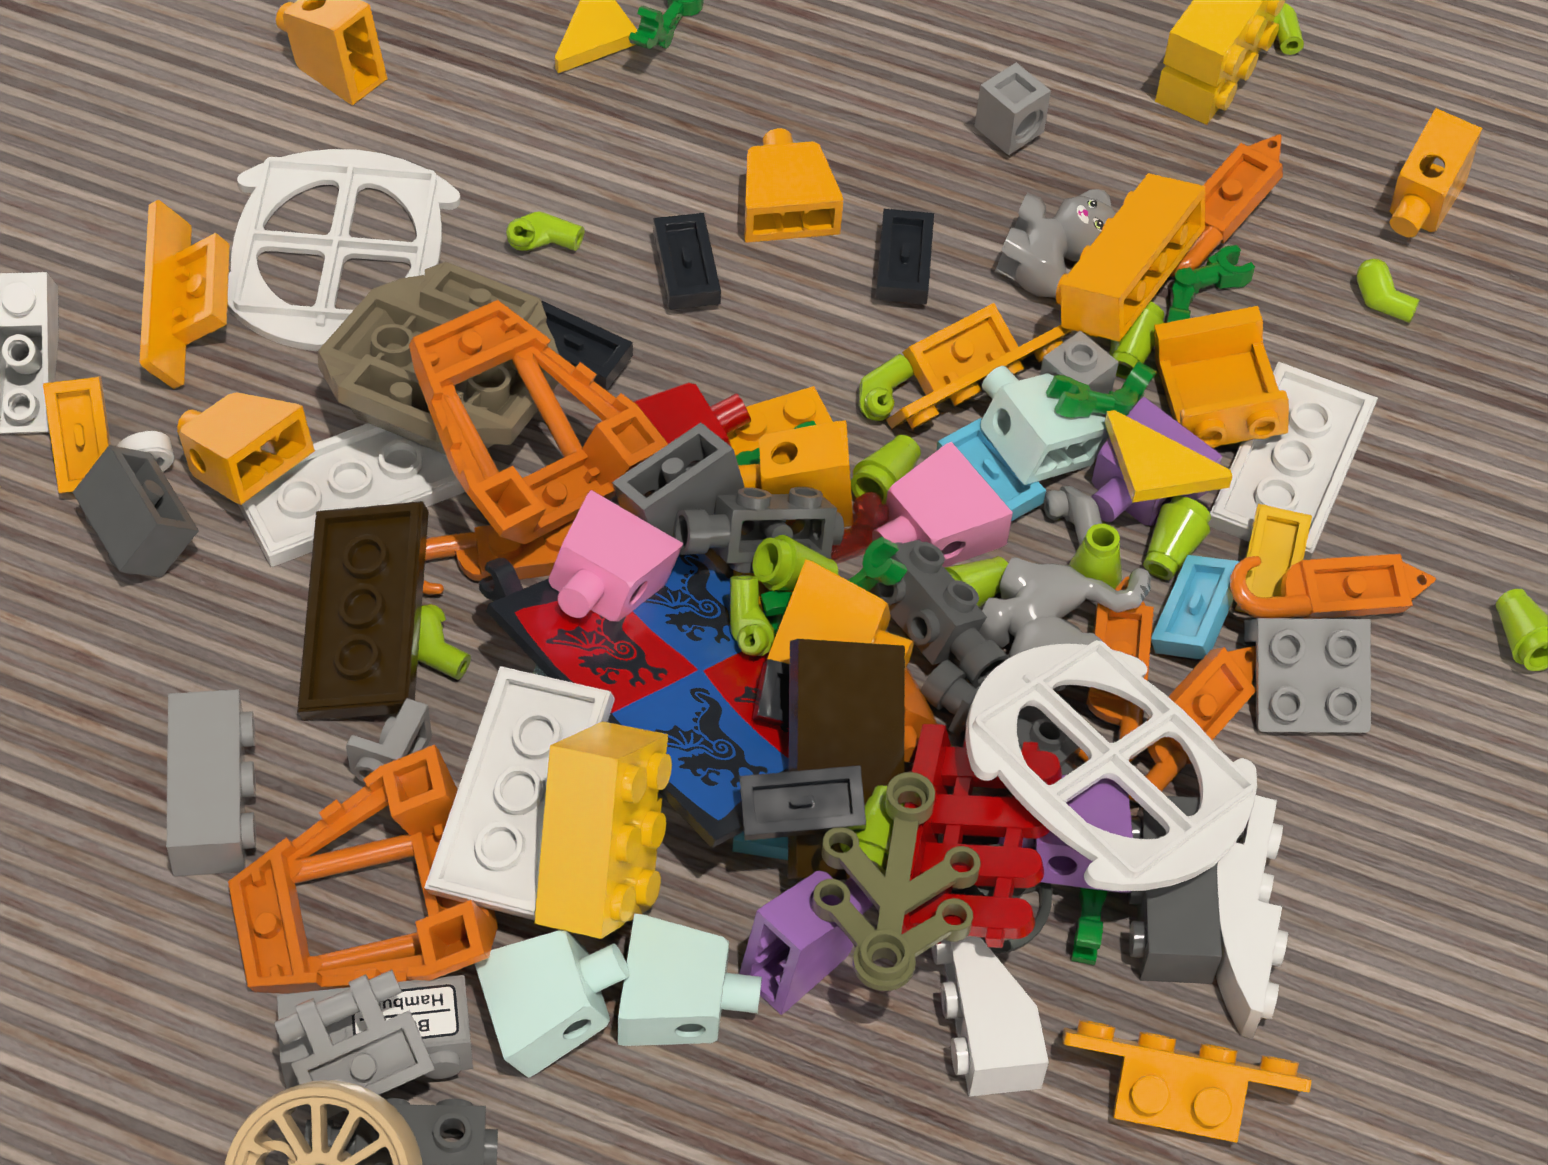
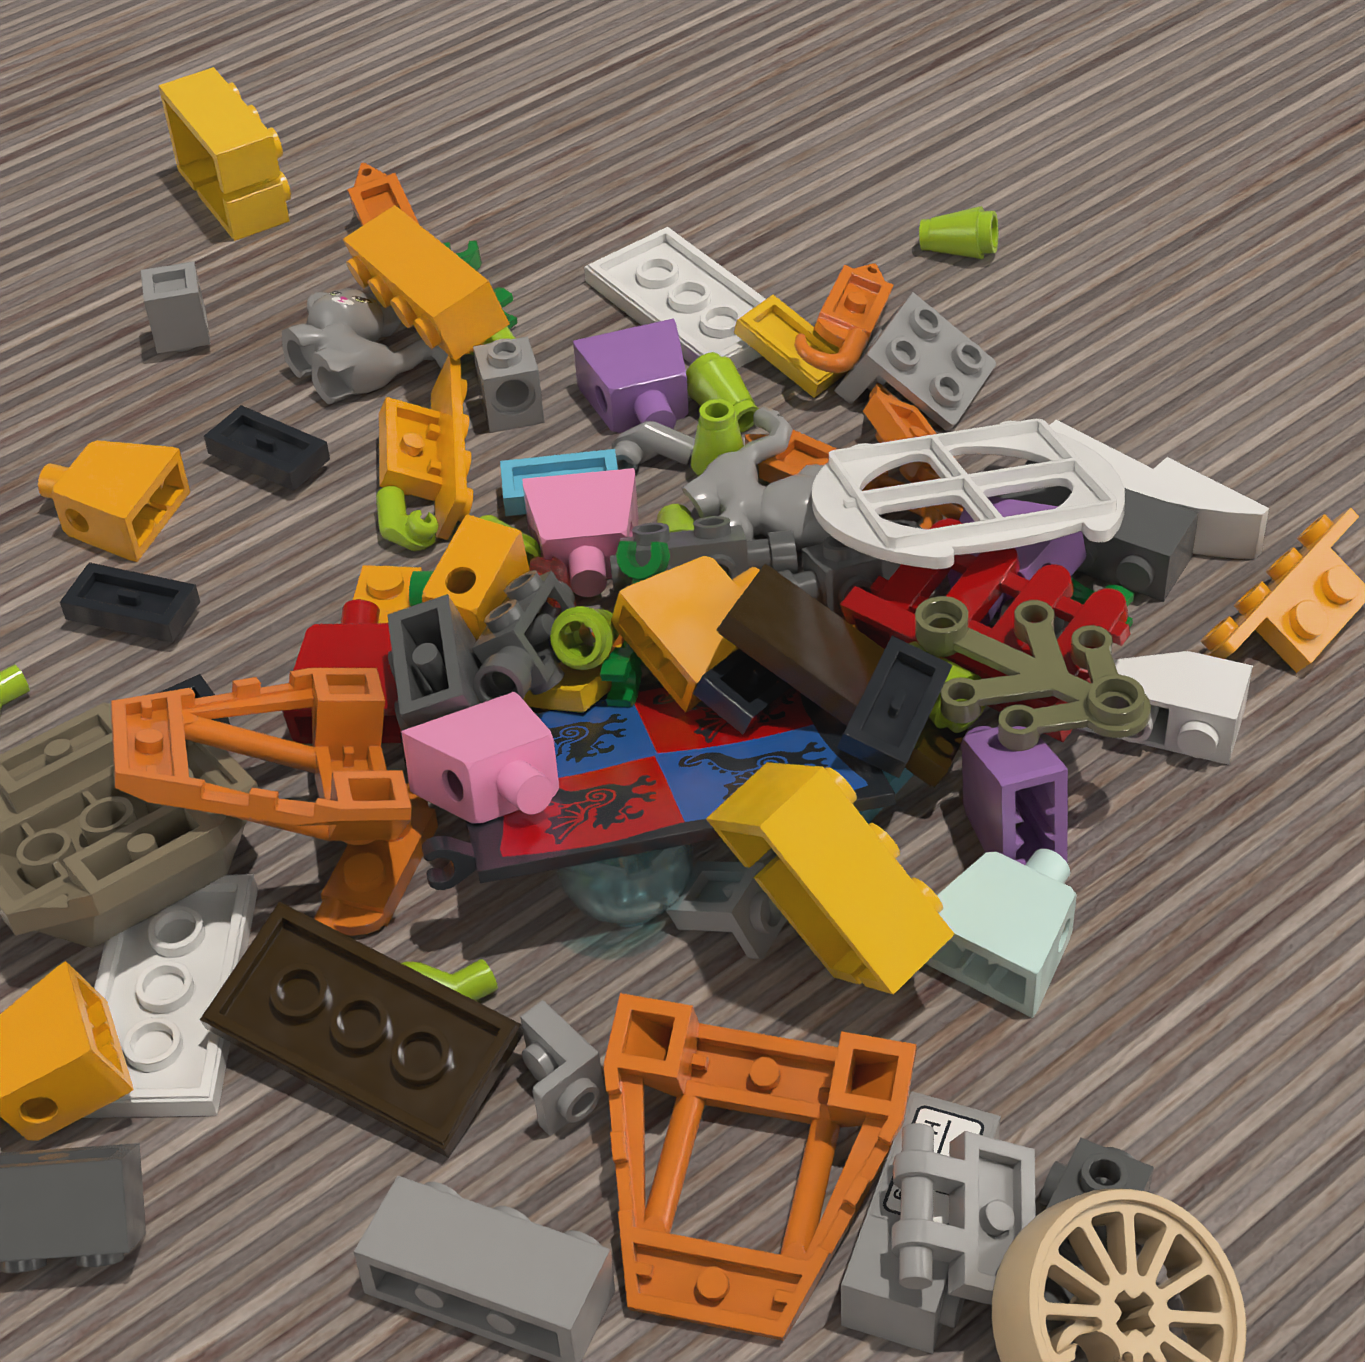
camera: 55 degrees left, 10 degrees down
(498, 812) = (728, 944): white tile -> none
(547, 996) = (972, 1029): light aqua torso -> none
(747, 619) = (618, 700): lime arm -> none
(1032, 434) = (563, 424): light aqua torso -> none
(1080, 401) = (552, 364): green piece -> none
(1158, 465) = (655, 355): yellow tile -> none
(1195, 608) = (809, 402): medium azure plate -> none
(1221, 377) = (578, 299): light orange panel -> none
(1380, 293) = (560, 187): lime arm -> none
(1426, 189) = (479, 99): light orange torso -> none

